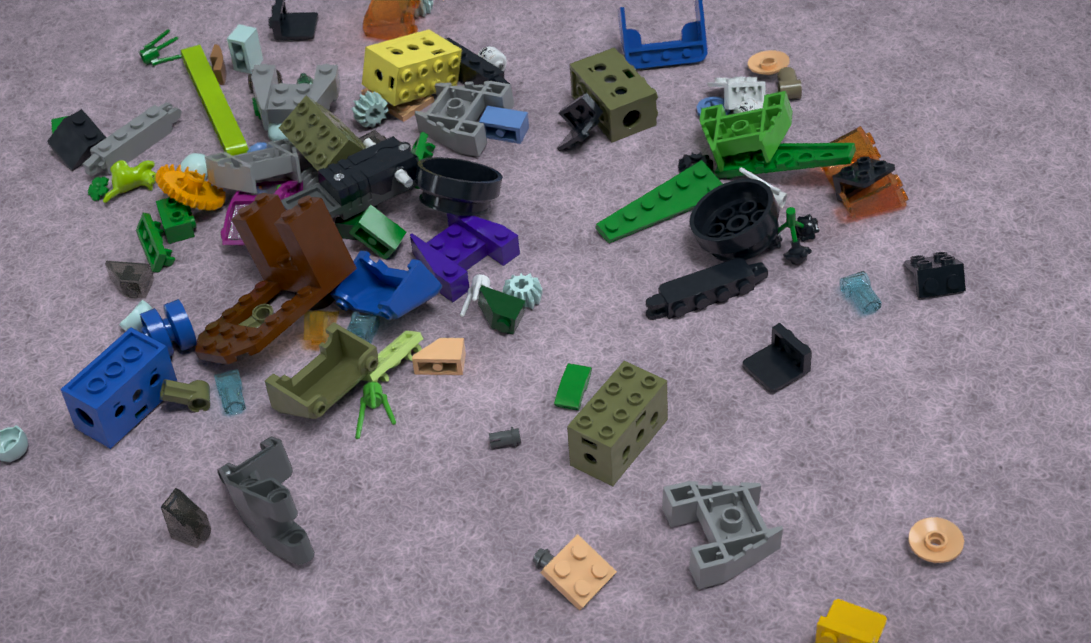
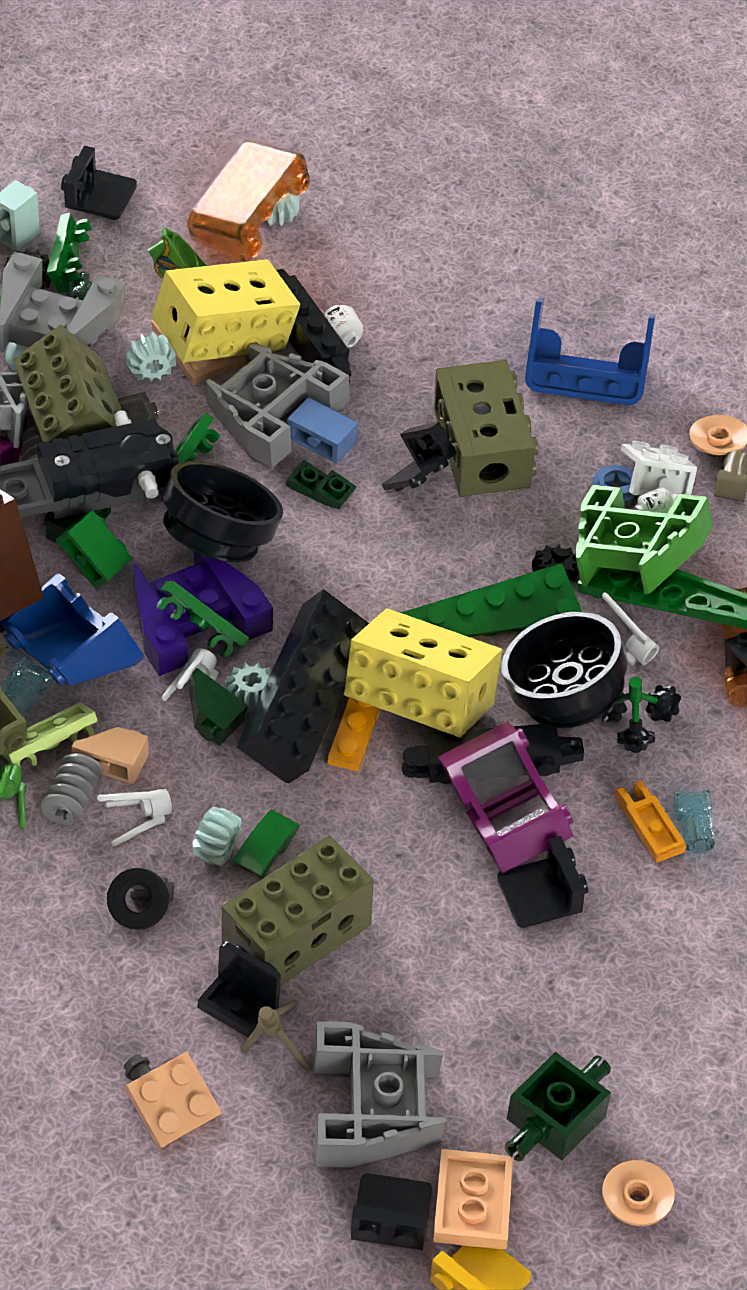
camera: 10 degrees right, 5 degrees up
(287, 67) = (65, 251): none -> green plate
(356, 46) = (173, 253): none -> bright green hat
(421, 387) = (71, 788): none -> light grey piece
(471, 253) = (202, 617): none -> green plate
(482, 382) = (152, 804): none -> white plant
(512, 452) = (158, 898): none -> black tyre
(522, 159) = (327, 489): none -> dark green slope
(538, 389) = (217, 836): none -> light aqua gear
(560, 279) = (302, 688): none -> black brick
(600, 483) = (241, 989): none -> black bracket
(604, 298) = (353, 735): none -> light orange plate
(631, 500) = (271, 1025): none -> dark tan plant
(639, 246) = (423, 672): none -> light yellow piece
(728, 309) = (505, 796): none -> magenta window
(768, 603) = (391, 1211): none -> black bracket
(823, 577) = (473, 1199): none -> light nougat plate
(831, 302) = (651, 822): none -> light orange hinge
(855, 498) = (558, 1106): none -> dark green brick

